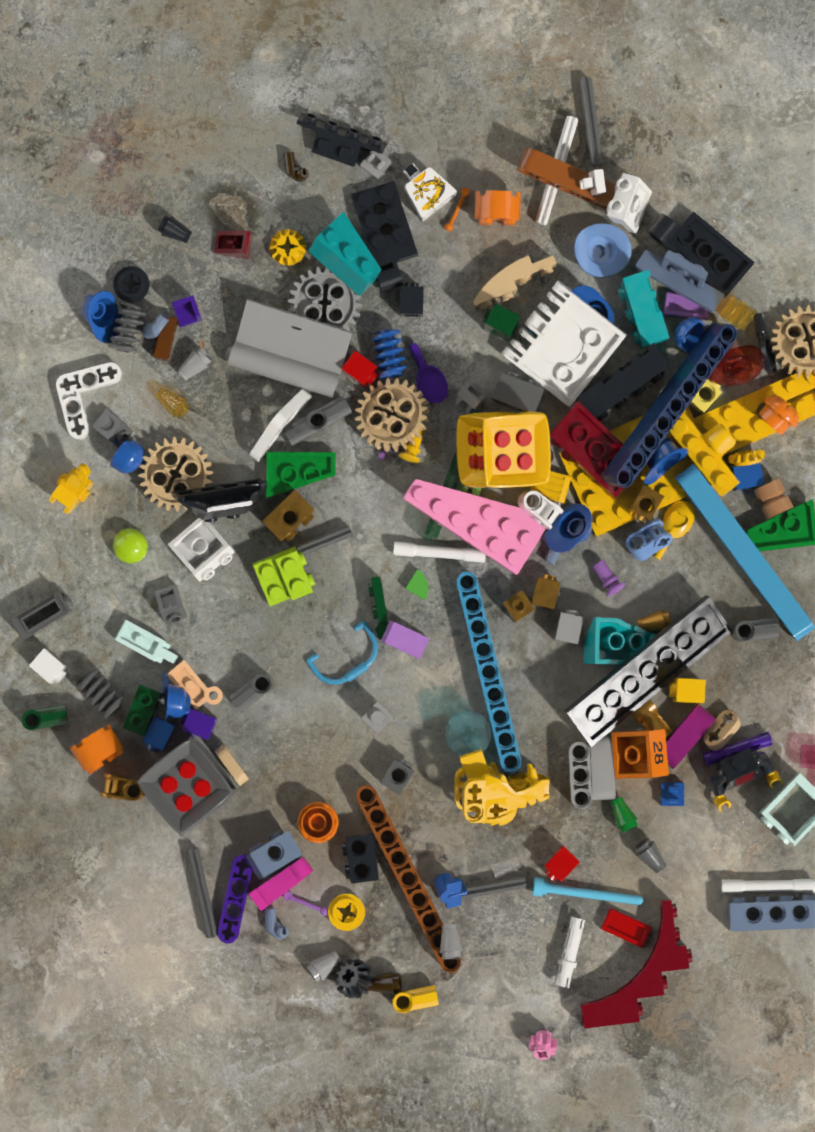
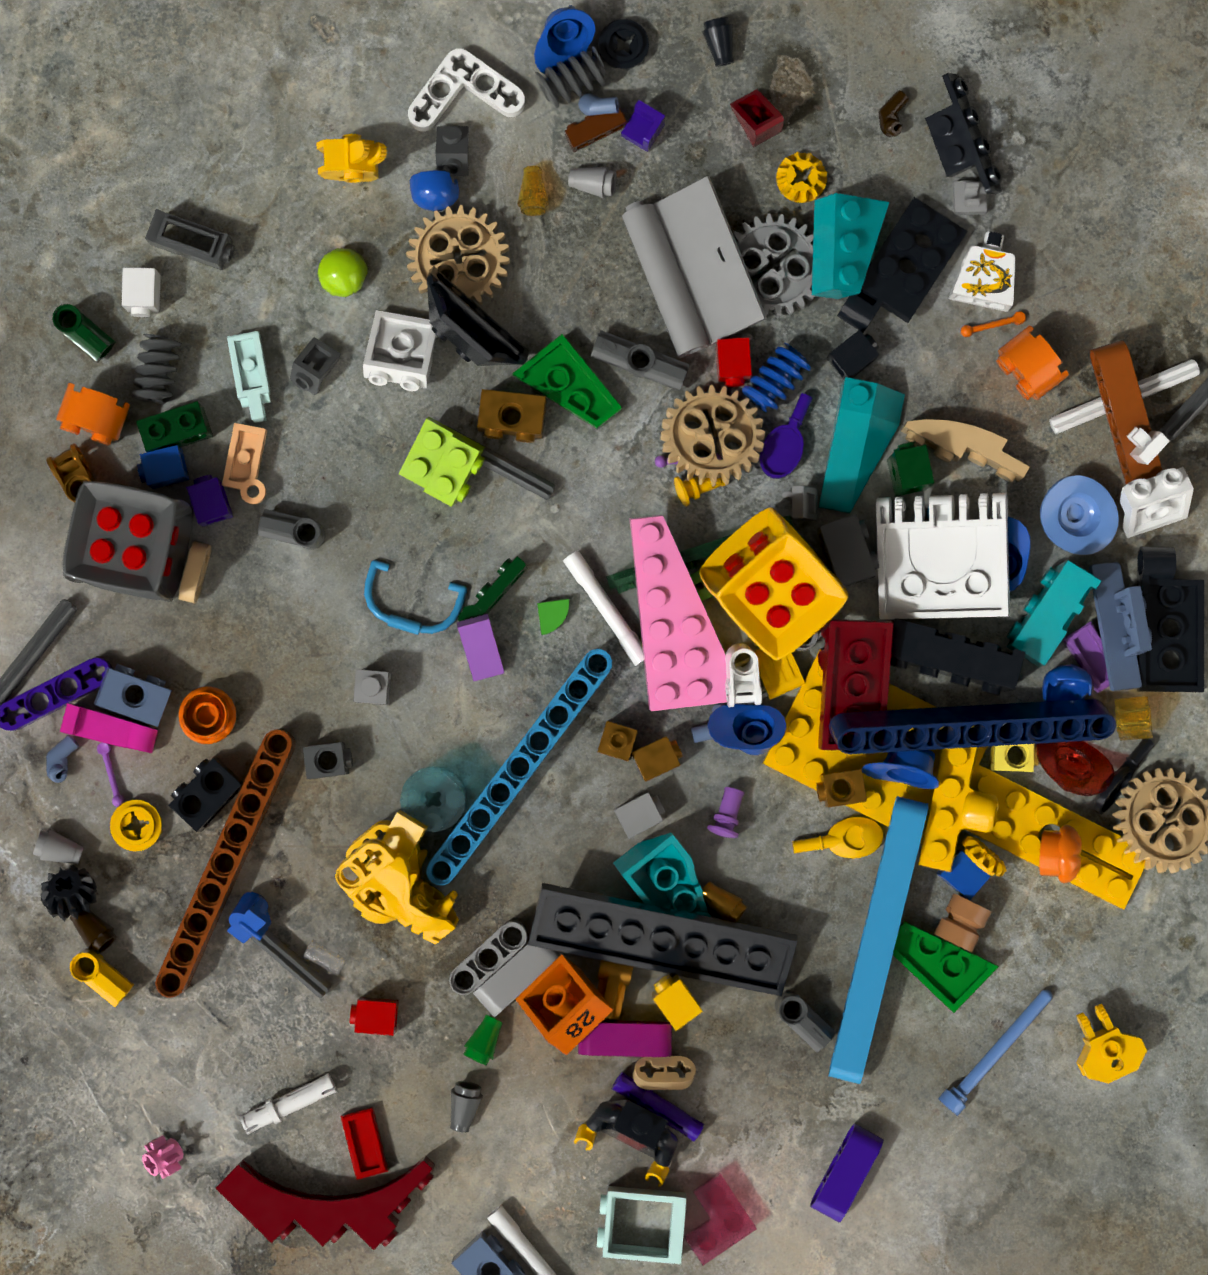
camera: 50 degrees right, 0 degrees up
(175, 698) = (211, 456): blue piece -> none
(277, 424) = (603, 318): white beam -> none
(450, 942) = (189, 965): light grey cone -> none
(459, 334) = (861, 432): none -> teal wedge
(542, 887) = (334, 1016): medium azure piece -> none
(649, 540) = (805, 824): medium blue piece -> none
(671, 794) = (550, 1075): blue tile -> none

